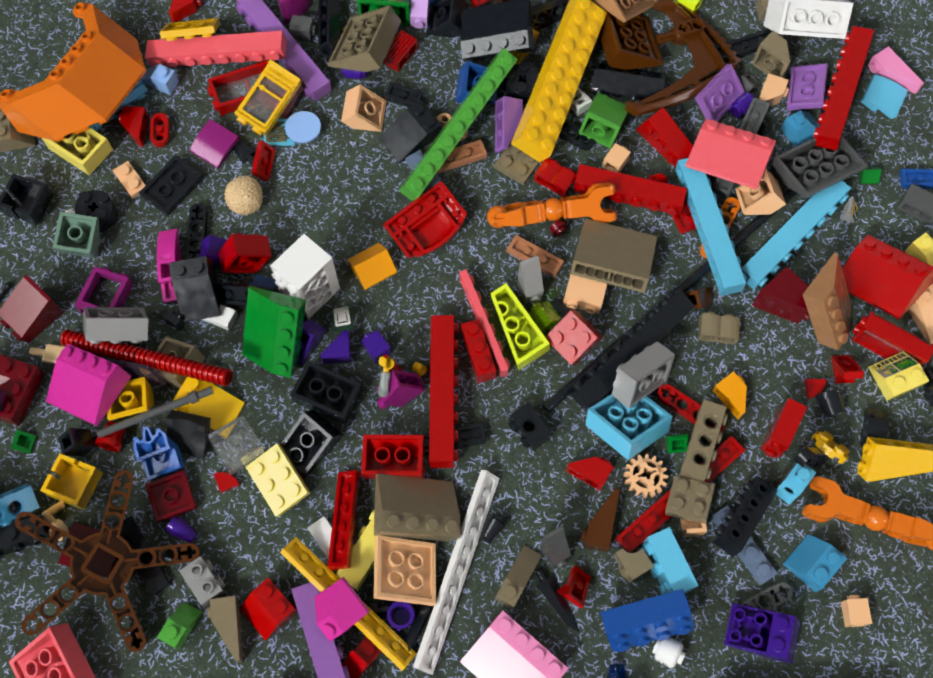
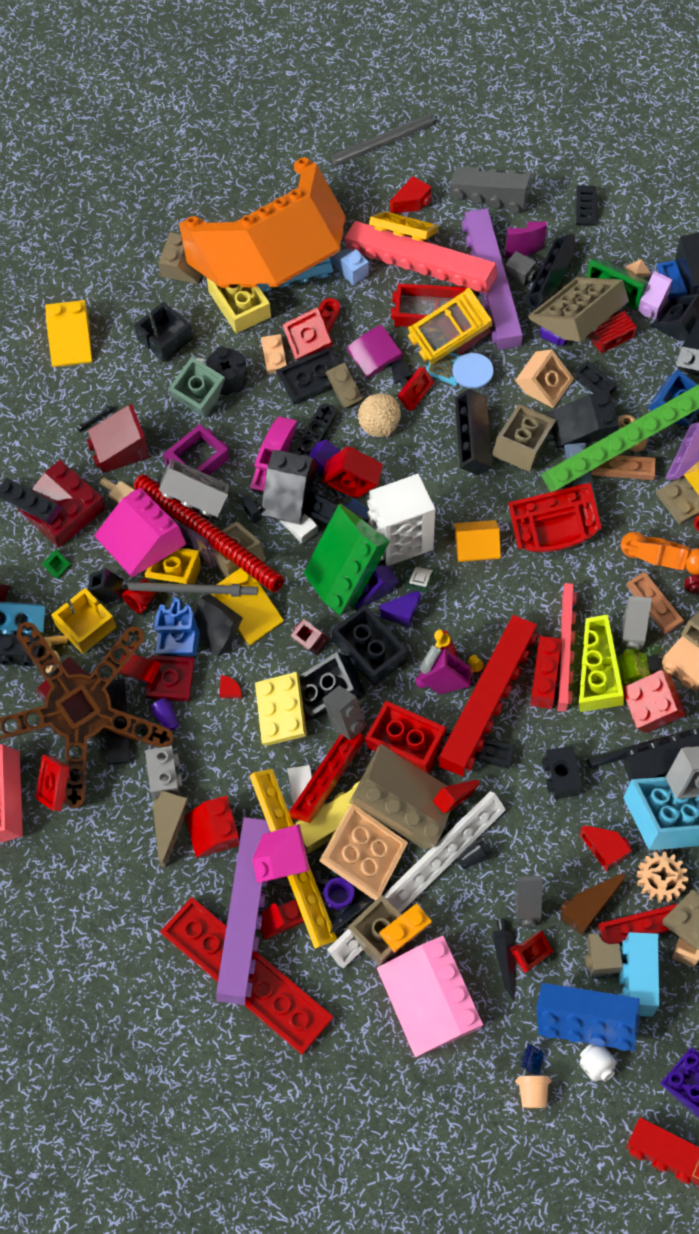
camera: 30 degrees right, 5 degrees down
(110, 639) = (52, 782): none -> red plate
(135, 122) = (305, 296): red slope -> none
(141, 500) = (140, 668): none -> red tile
(151, 151) = (307, 334): none -> plate
(180, 626) = (121, 804): bright green slope -> none
(202, 182) = (344, 385): none -> dark tan plate
(236, 445) = (255, 656): clear brick -> none
(280, 408) = (316, 639): none -> brick
(327, 178) = (473, 432): none -> black brick
(334, 460) = (344, 712): none -> dark grey brick
(369, 165) = (523, 437): none -> dark tan slope
(375, 345) = (442, 618): dark purple brick -> none
(449, 629) = (368, 926): none -> dark tan slope
(454, 488) = (455, 794): none -> red slope
(470, 619) = (405, 927): none -> light orange plate
(518, 577) = (475, 915): dark tan slope -> none

